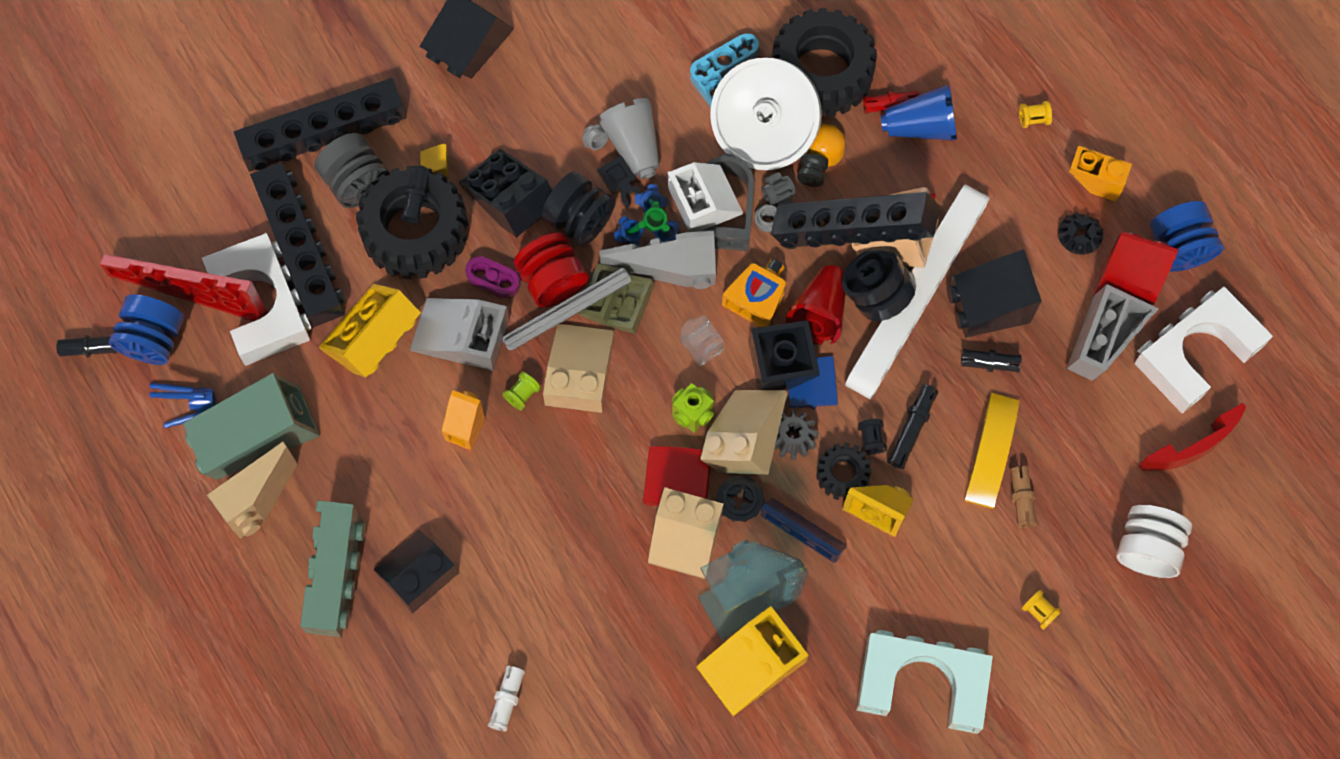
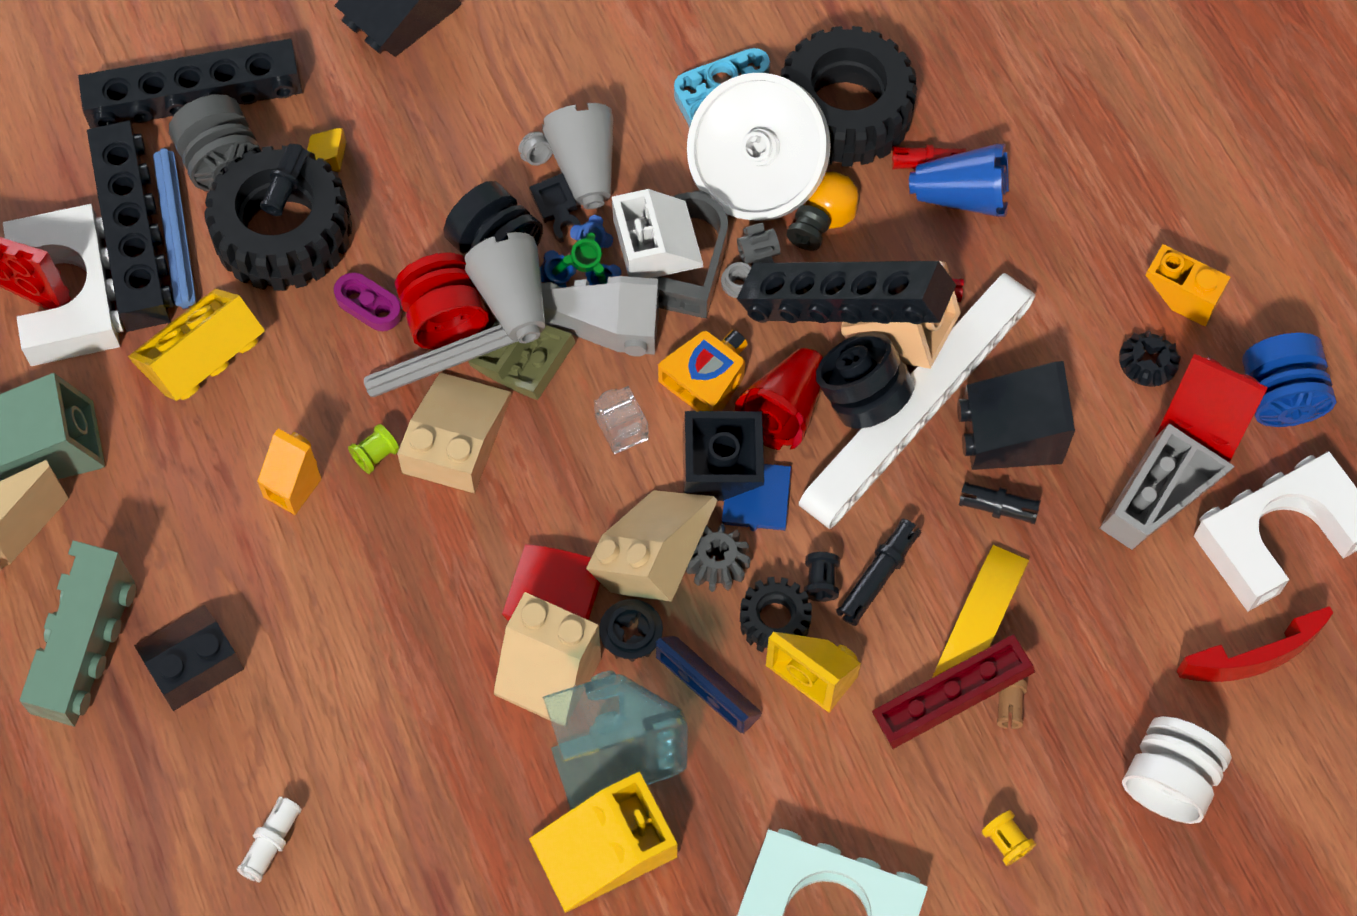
camera: 10 degrees right, 5 degrees down
(332, 241) = (174, 229): none -> medium blue axle
(461, 331) = (314, 362): light grey slope -> none
(508, 191) = (408, 198): black slope -> none
(604, 251) = (510, 283): none -> light grey cone
(692, 416) = (591, 502): lime brick -> none
(984, 508) = (953, 691): none -> dark red plate
(1035, 114) = (1115, 199): yellow bush -> none

